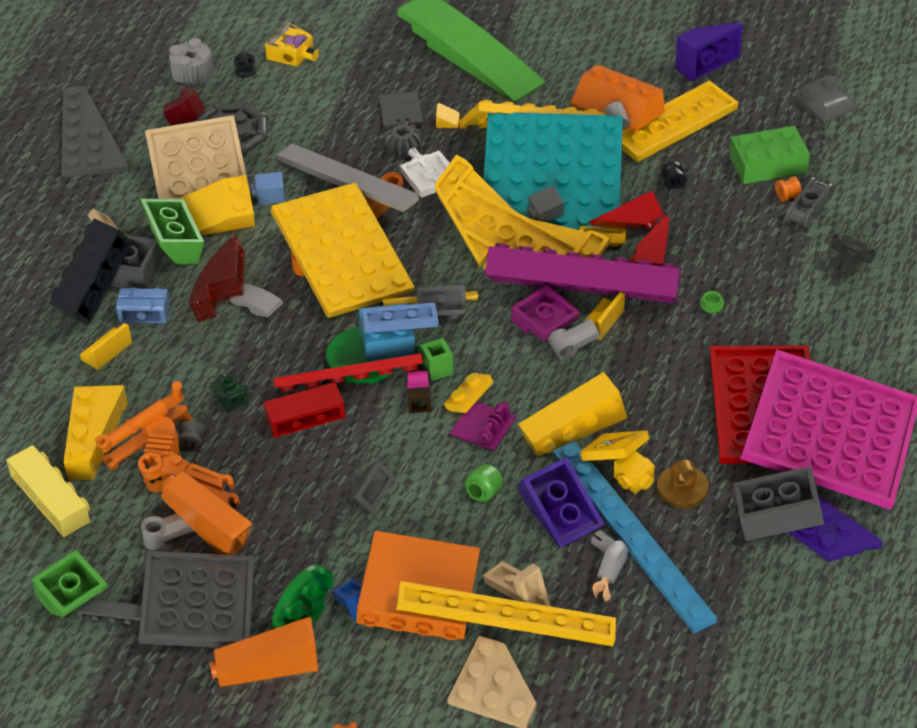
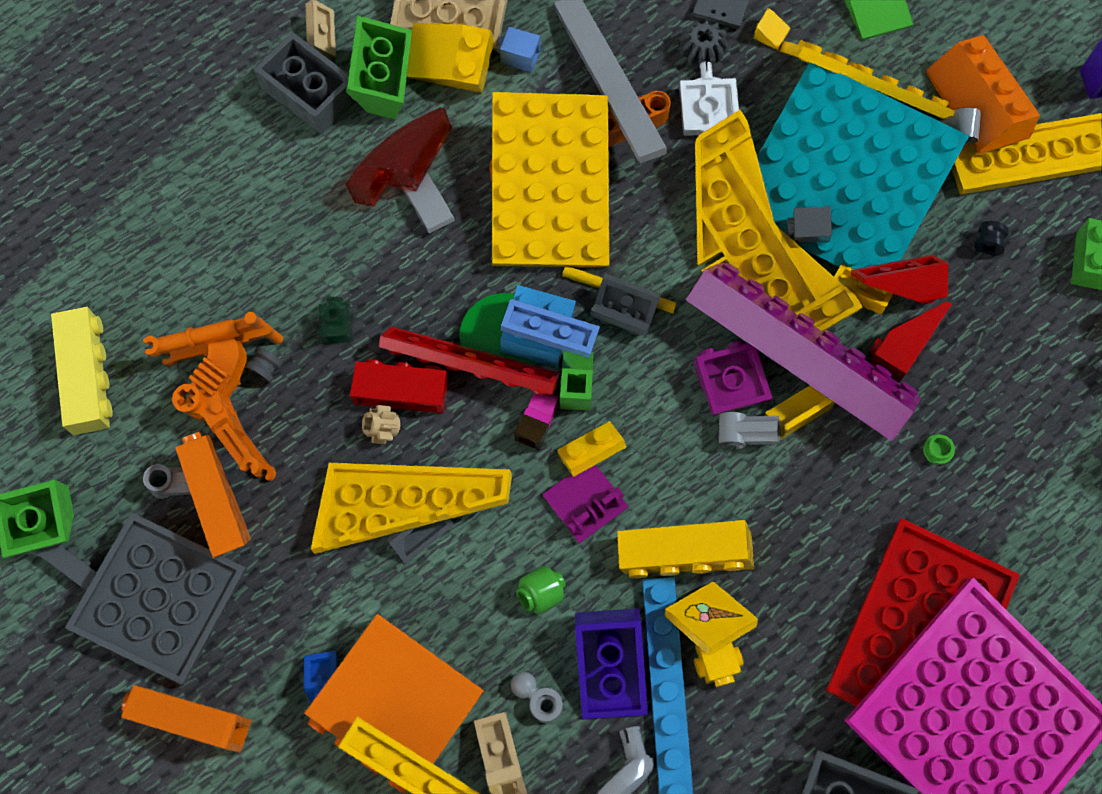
camera: 25 degrees right, 25 degrees up
(90, 272) = (252, 98): black brick -> none
(93, 413) = (165, 304): yellow wedge -> none
(107, 347) = (240, 195): yellow panel -> none
(143, 305) = (304, 156): medium blue brick -> none
(304, 435) = (381, 424): none -> tan gear
(304, 596) = (248, 677): green tile -> none
(334, 475) = (381, 500): none -> yellow wing
(506, 543) = (524, 686): none -> light grey plate
(682, 485) = (764, 704): pearl gold tile -> none

